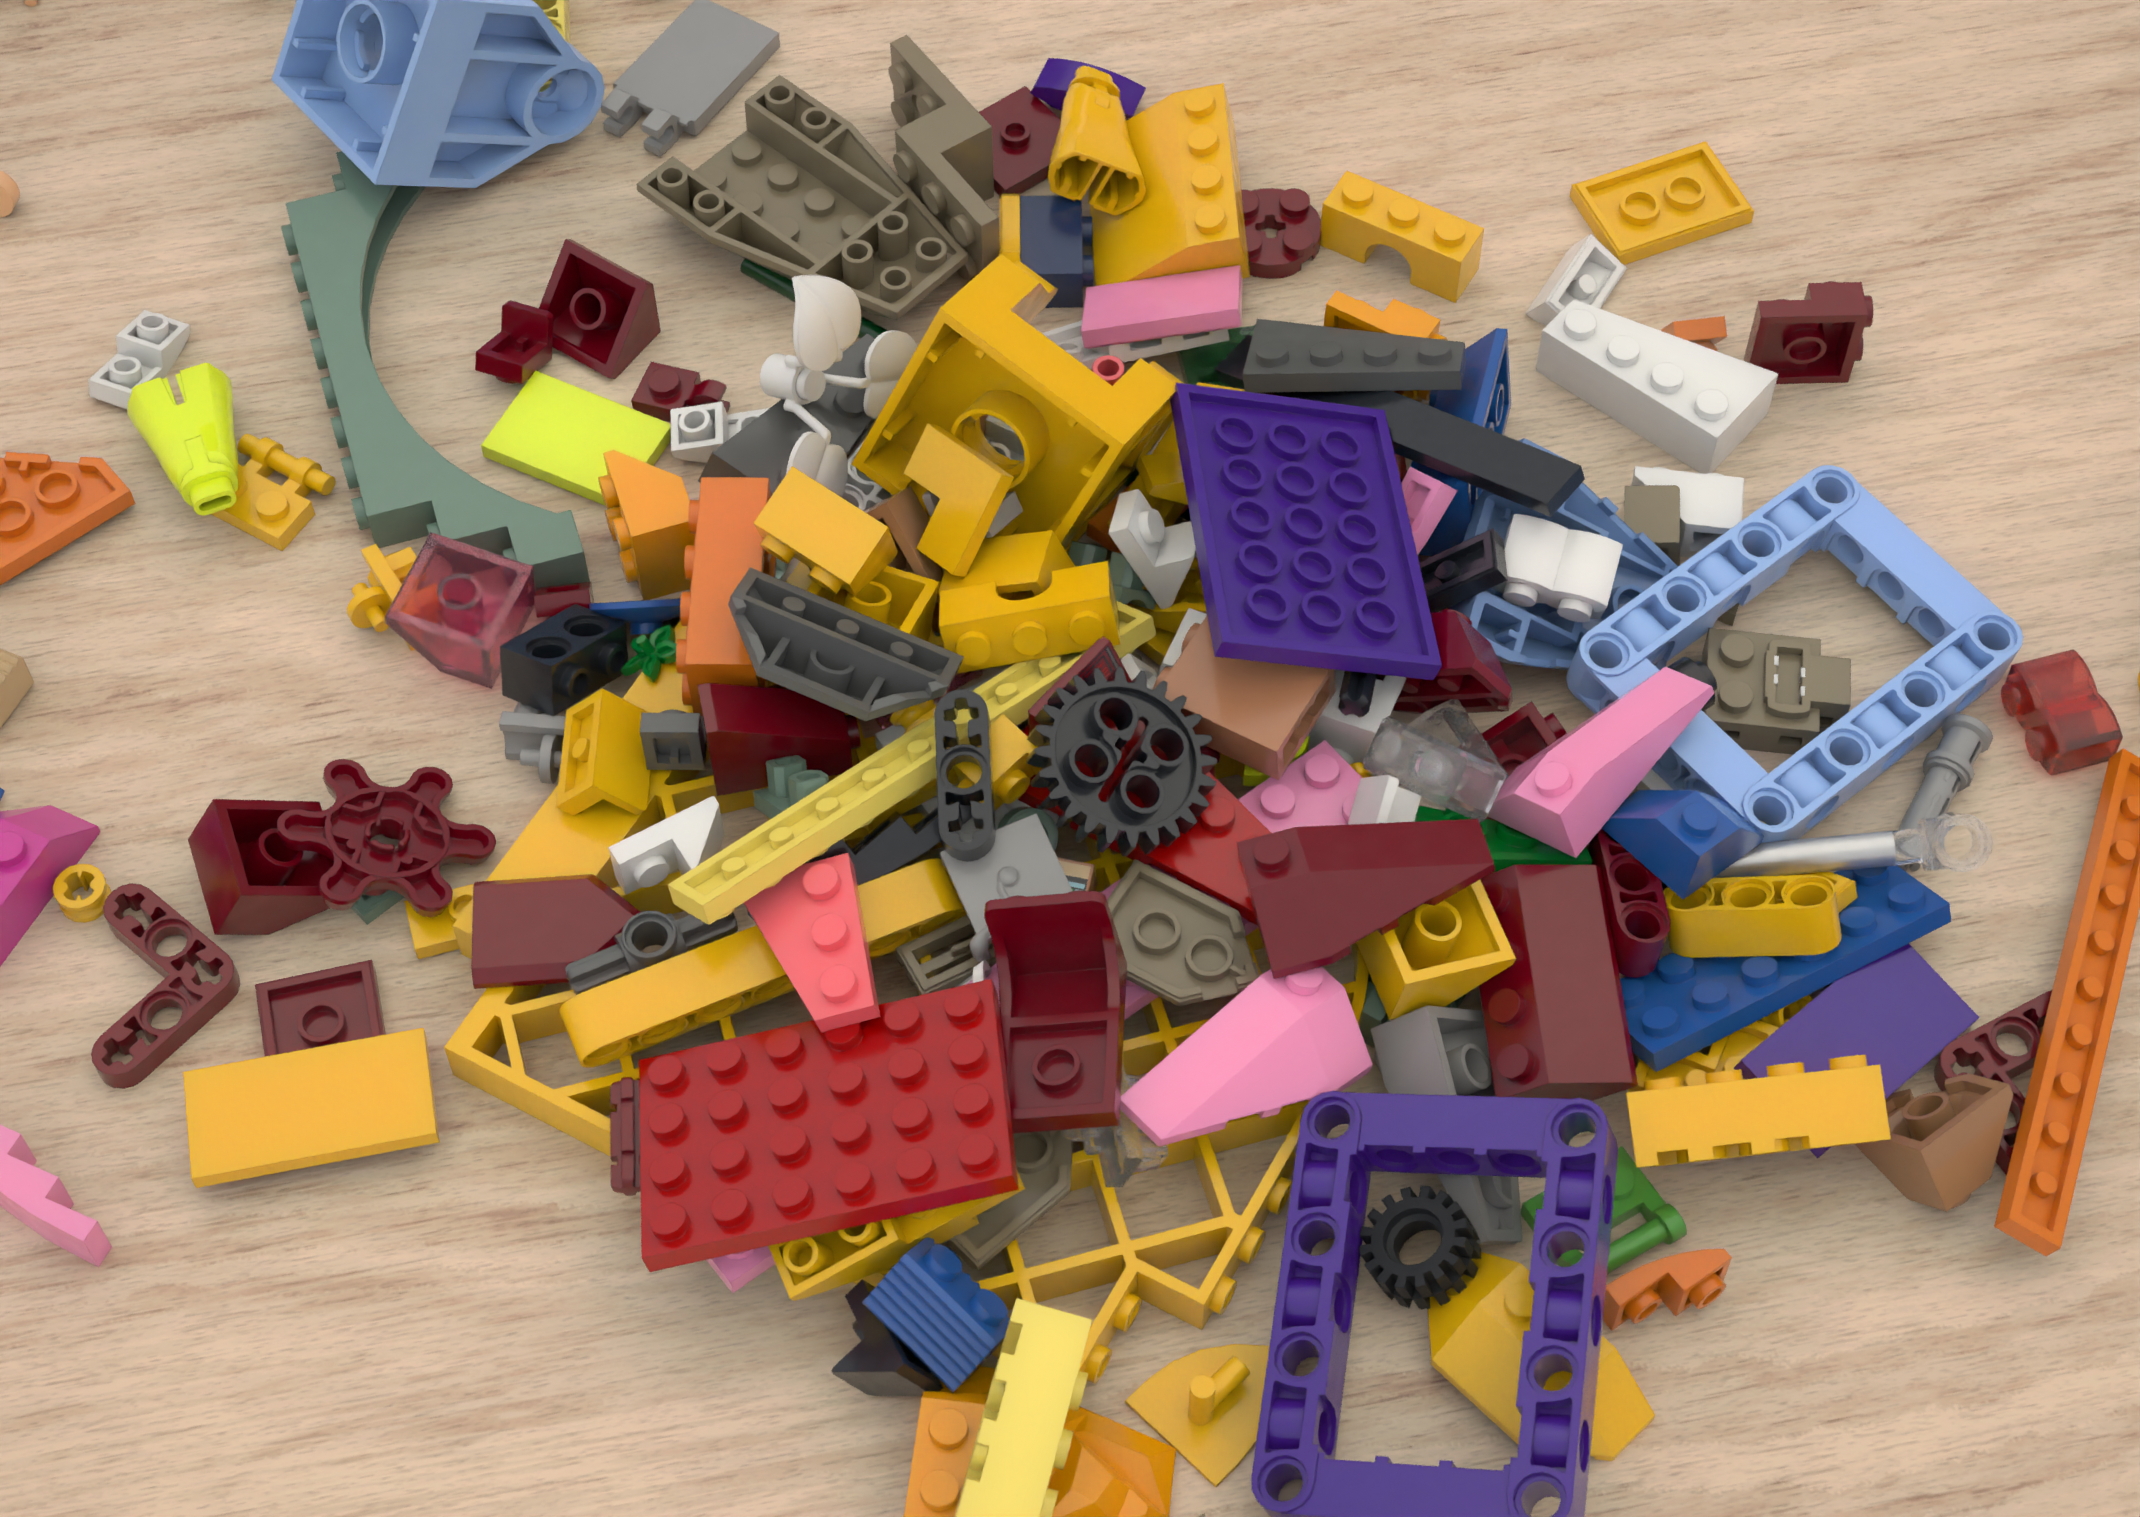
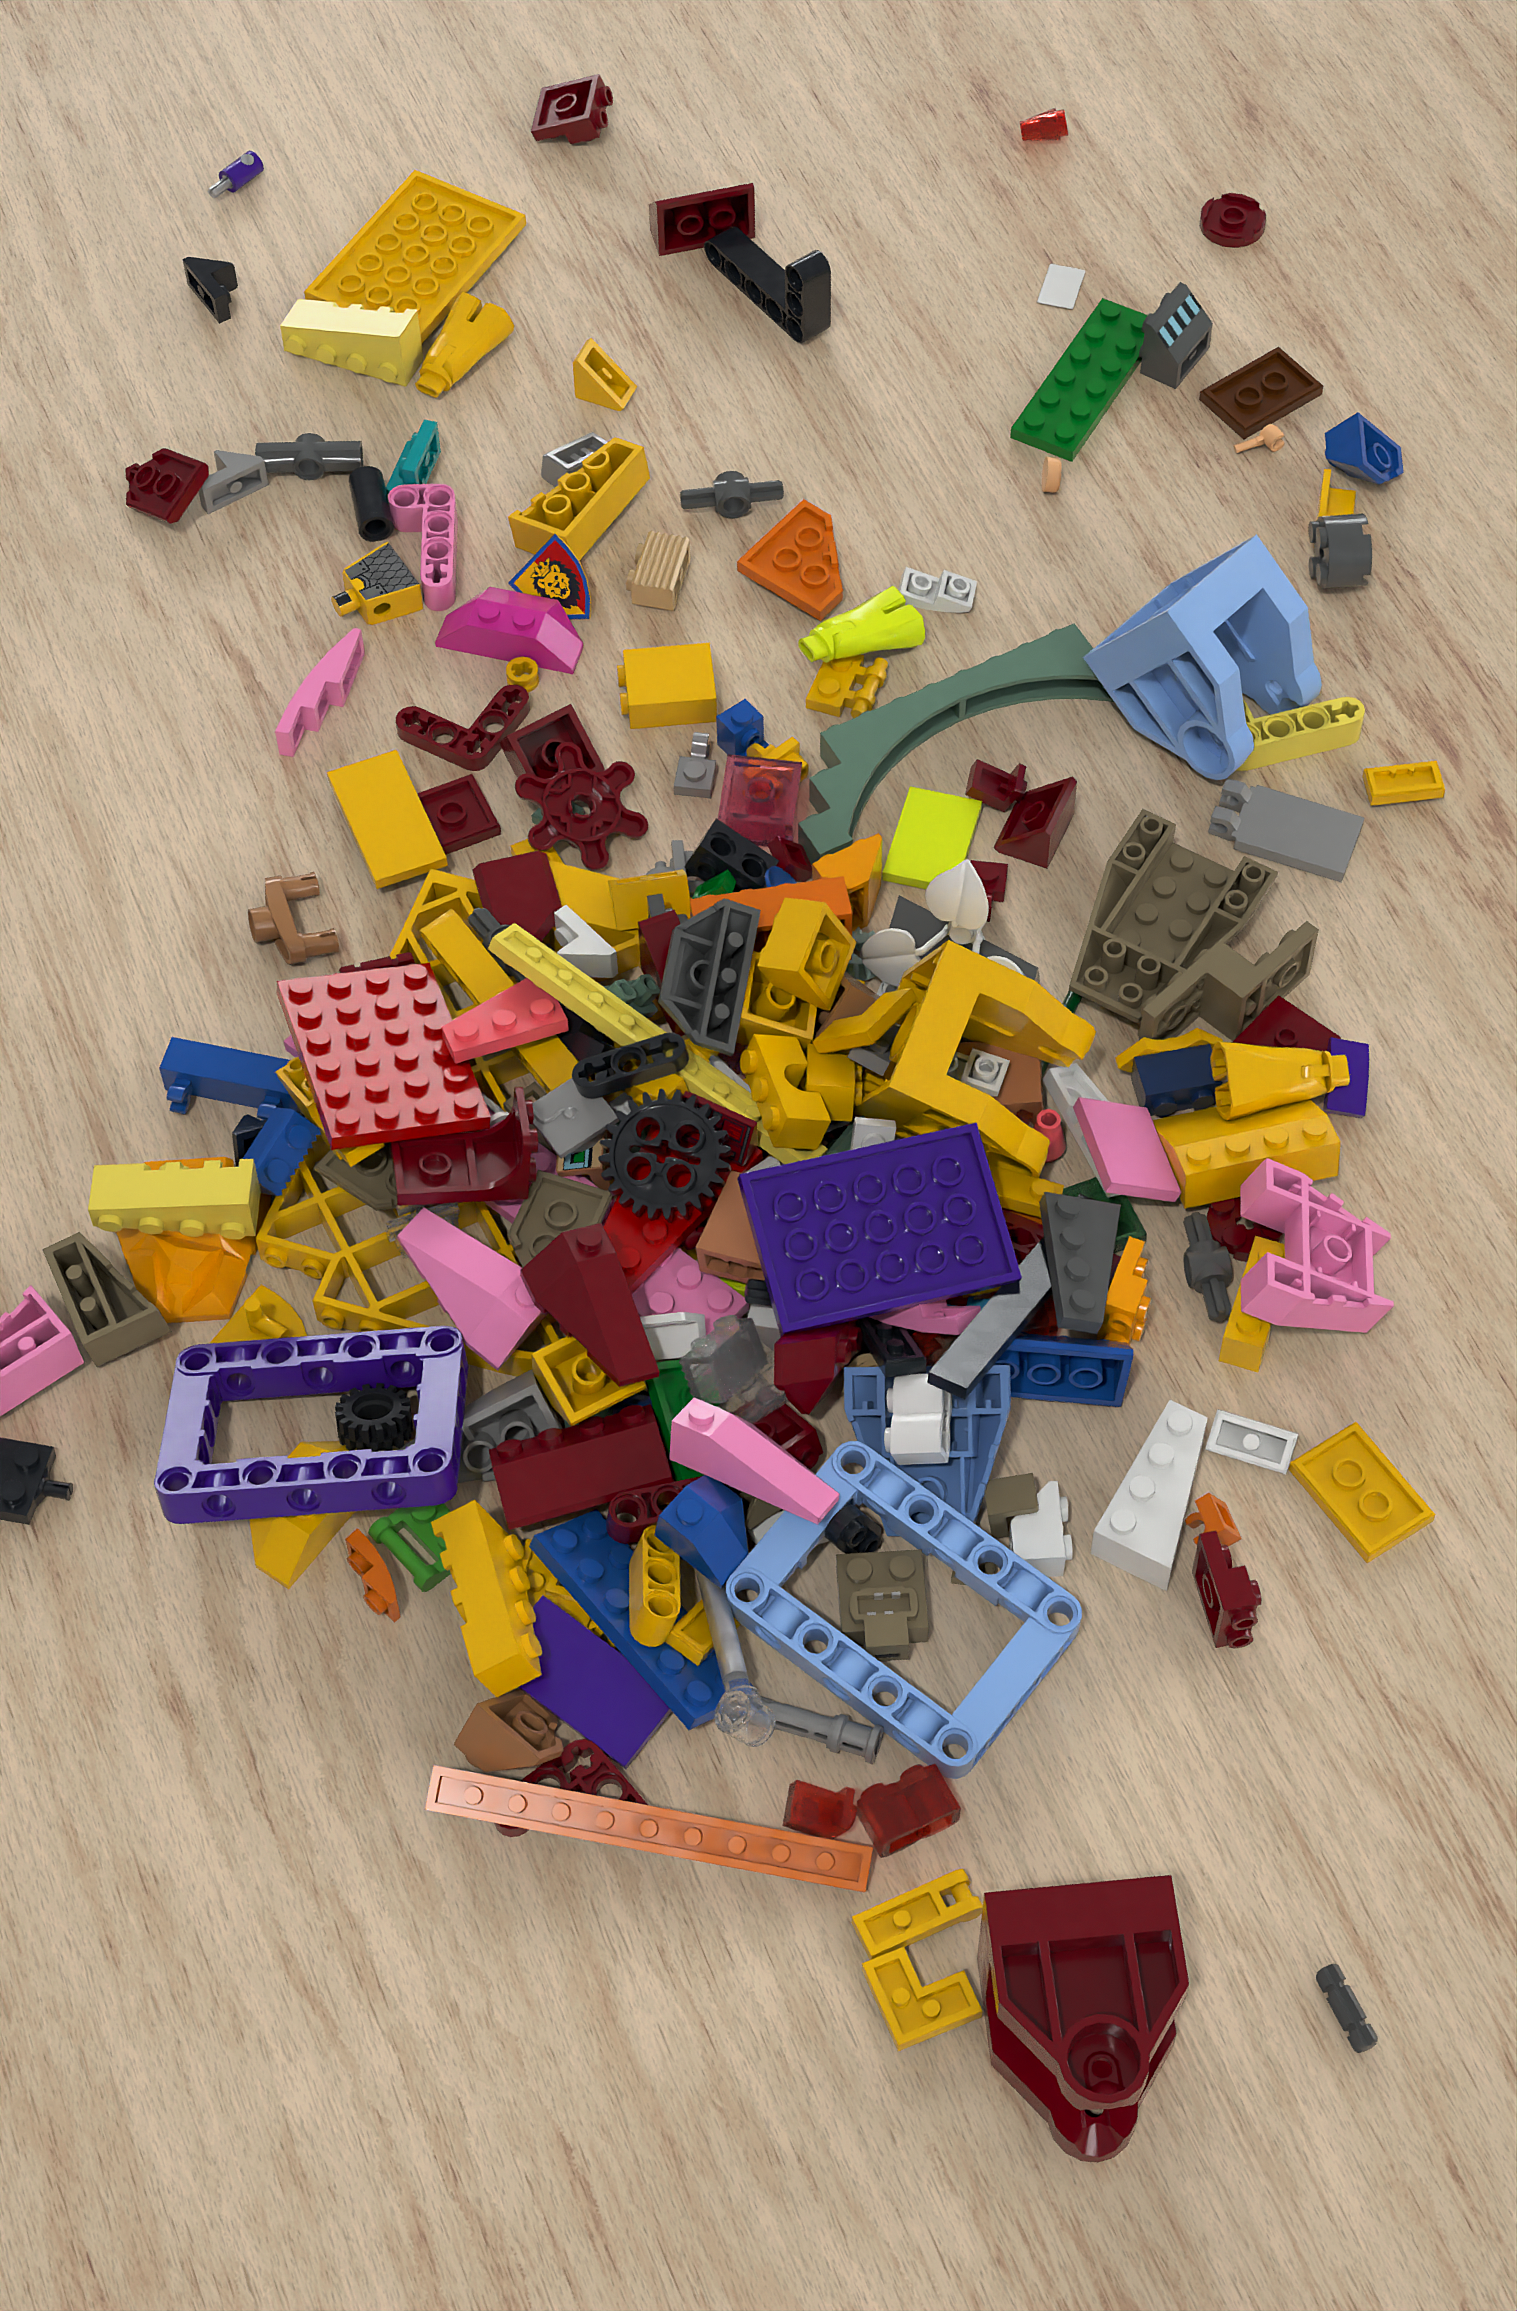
camera: 80 degrees right, 0 degrees up
(190, 698) = (668, 686): none -> yellow brick
(316, 620) = (740, 728): none -> blue brick
(358, 698) = (696, 773): none -> light grey plate
(457, 1292) = (276, 921): none -> medium nougat connector
(624, 674) = (718, 885): none -> green plate
(743, 1391) = (223, 1076): none -> blue brick
(1333, 268) = (1207, 1267): none -> dark grey axle
(1367, 133) = (1327, 1256): none -> bright pink wedge
(2059, 800) = (819, 1810): none -> clear red bracket

